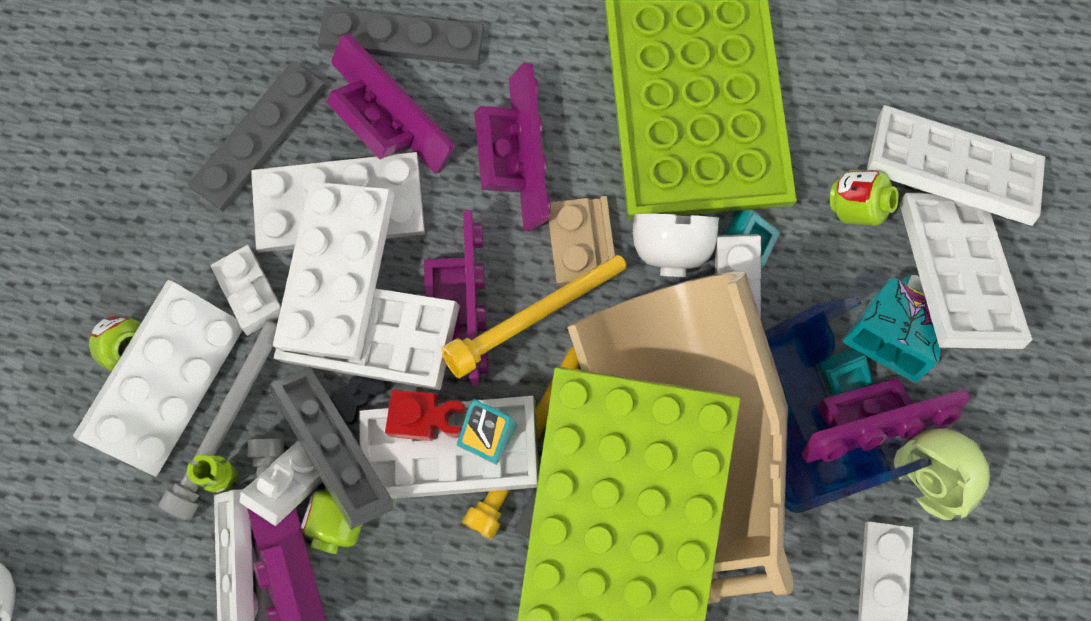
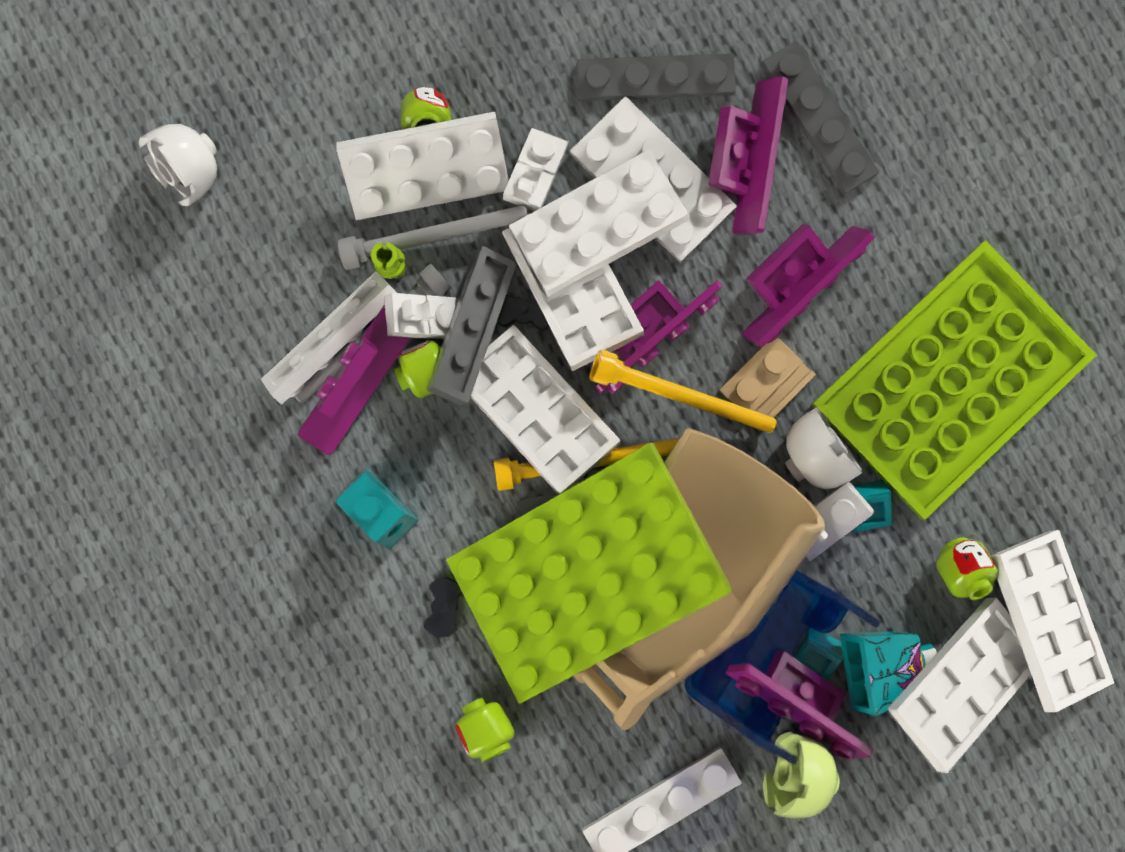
camera: 55 degrees right, 10 degrees up
(418, 414) = (541, 370): red plate -> none
(486, 431) = (567, 428): slope -> none

